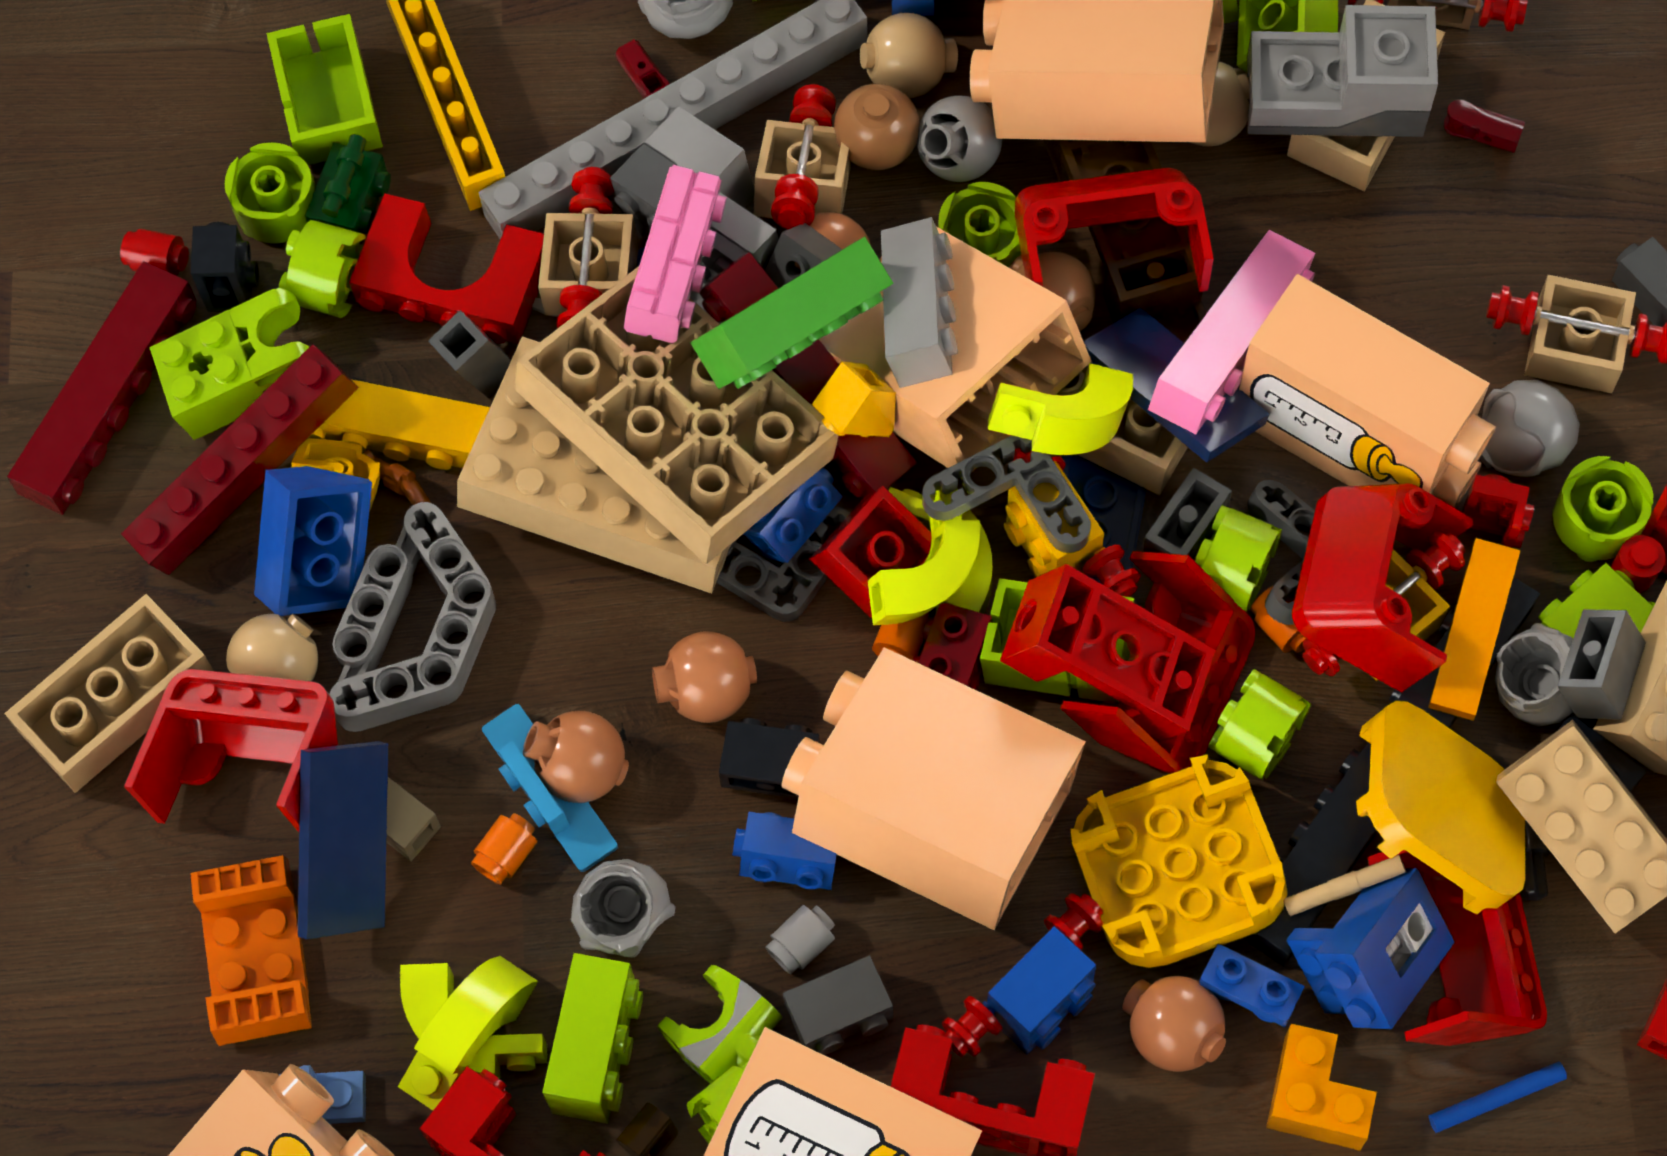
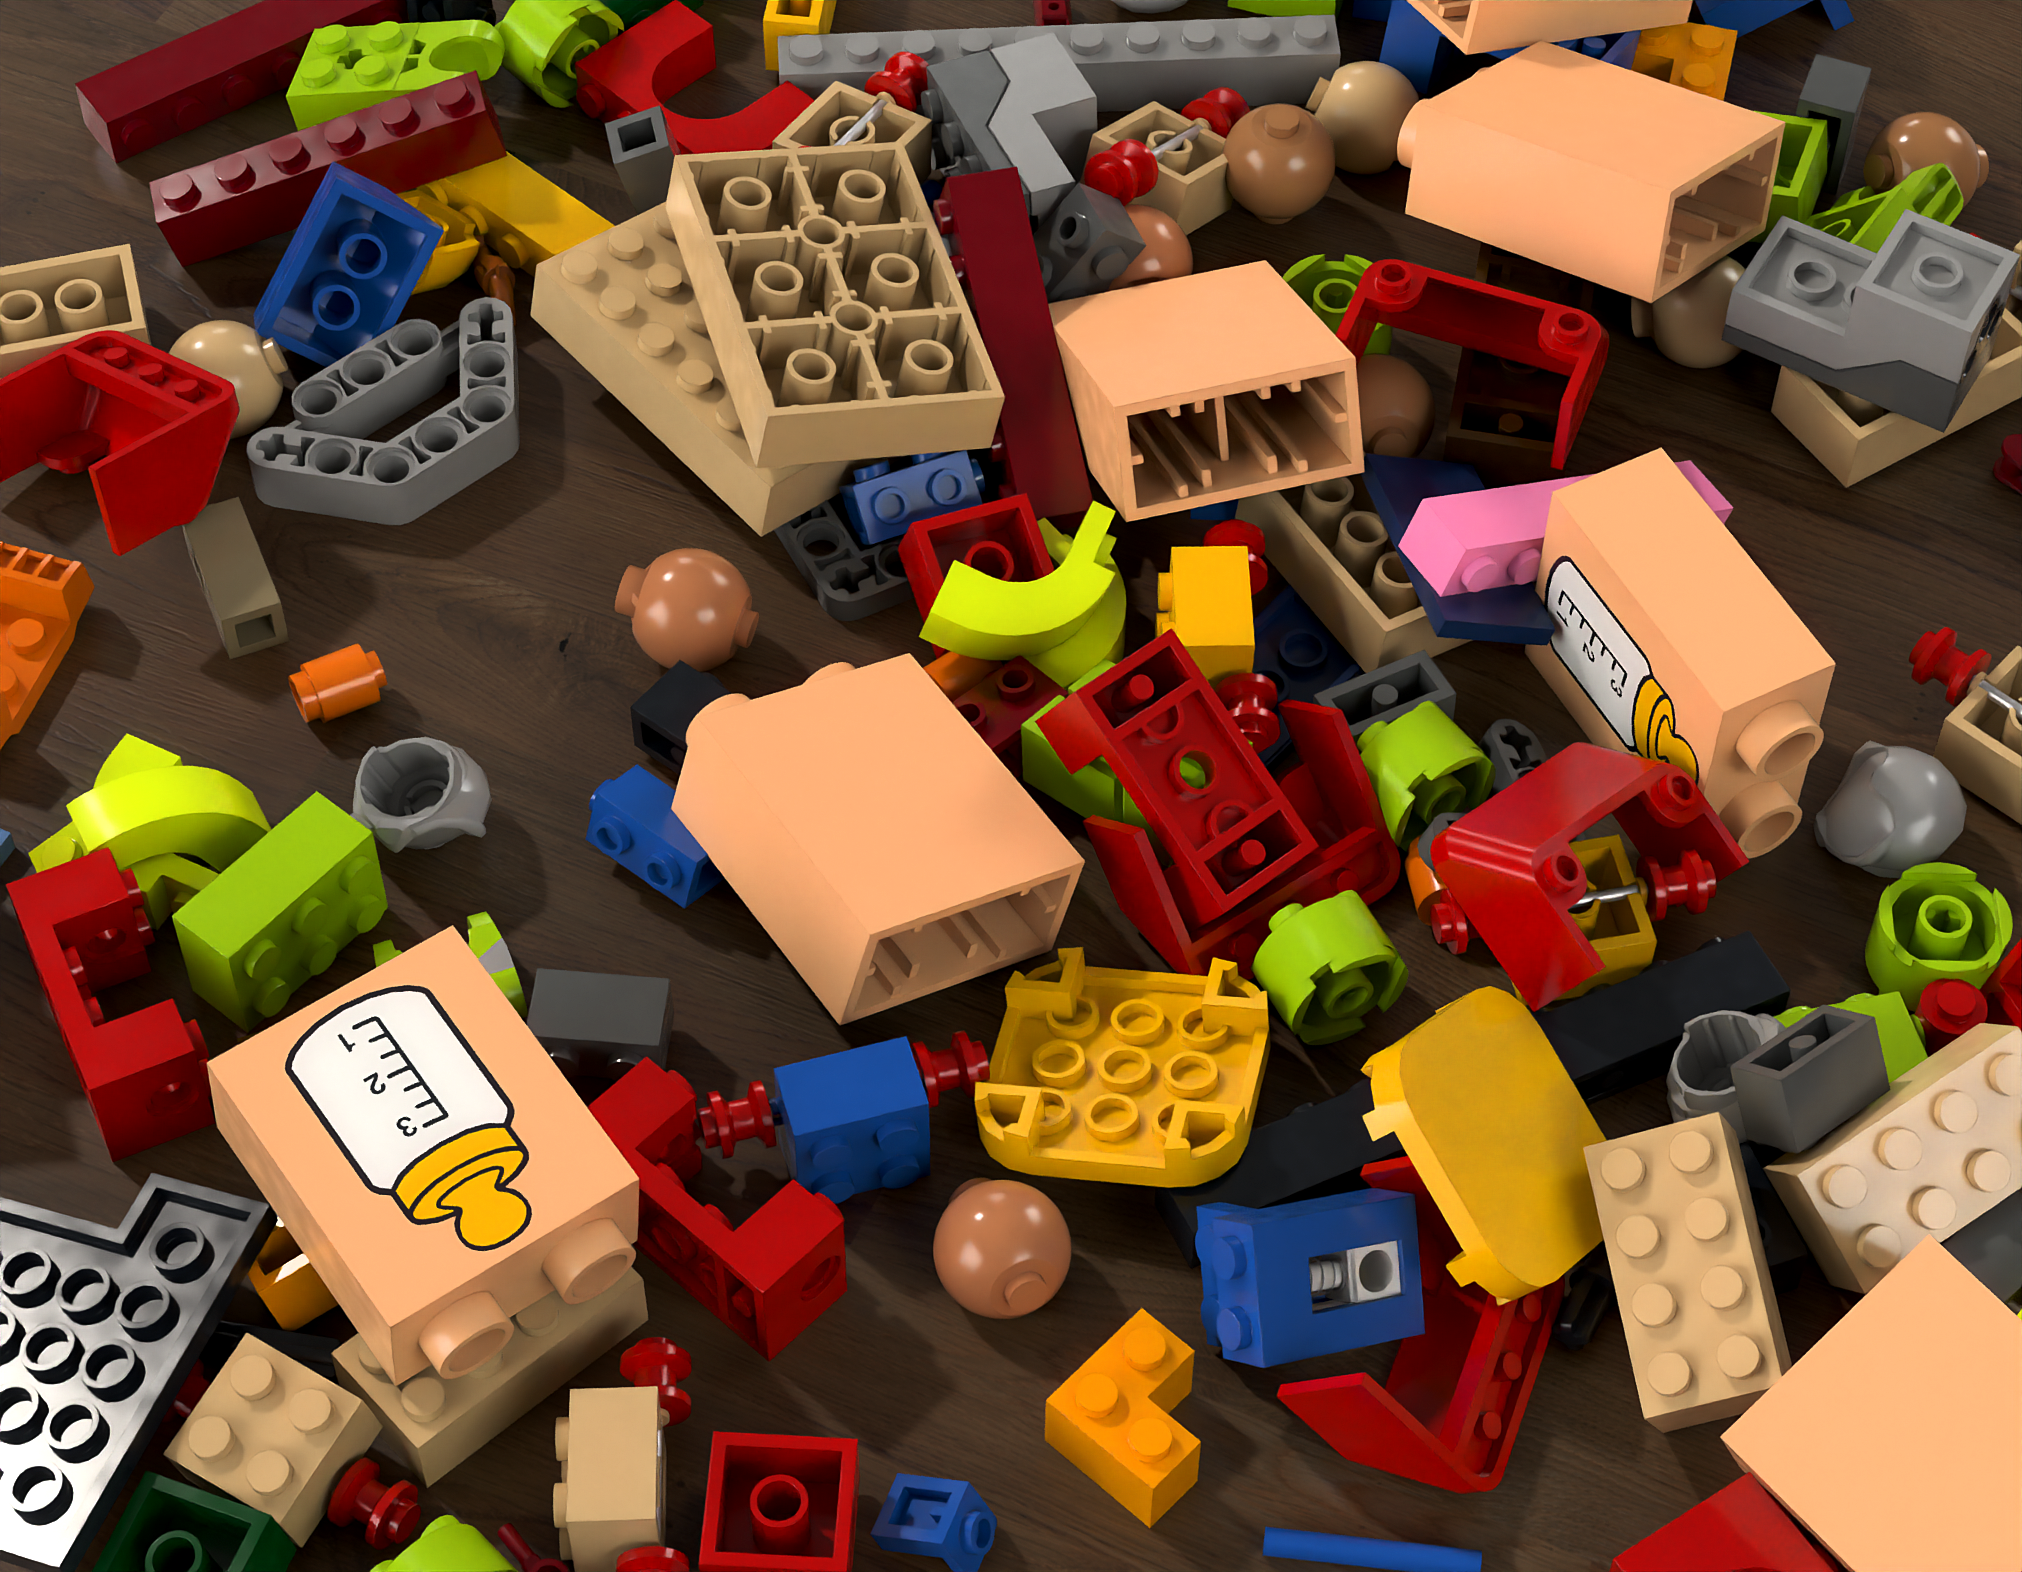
camera: 25 degrees right, 15 degrees down
(342, 839) = (151, 564): dark blue tile -> none
(573, 824) = (431, 645): dark azure bracket -> none
(577, 756) = (483, 621): nougat brick -> none
(673, 255) = (930, 139): bright pink brick -> none
(793, 316) = (1019, 237): bright green brick -> none
(801, 938) = (610, 938): light grey brick -> none
(857, 402) = (1043, 371): yellow slope -> none
(918, 303) = (1179, 300): light grey brick -> none
(958, 139) = (1363, 211): light grey brick -> none
(1022, 476) = (1190, 536): dark grey beam -> none
(1065, 422) = (1286, 503): neon yellow arch -> none
(1251, 985) = (1122, 1248): blue bracket -> none
(1344, 885) = (1312, 1178): tan piece -> none
(1474, 629) = (1673, 984): light orange tile -> none
(1499, 508) = (1791, 874): red bracket -> none

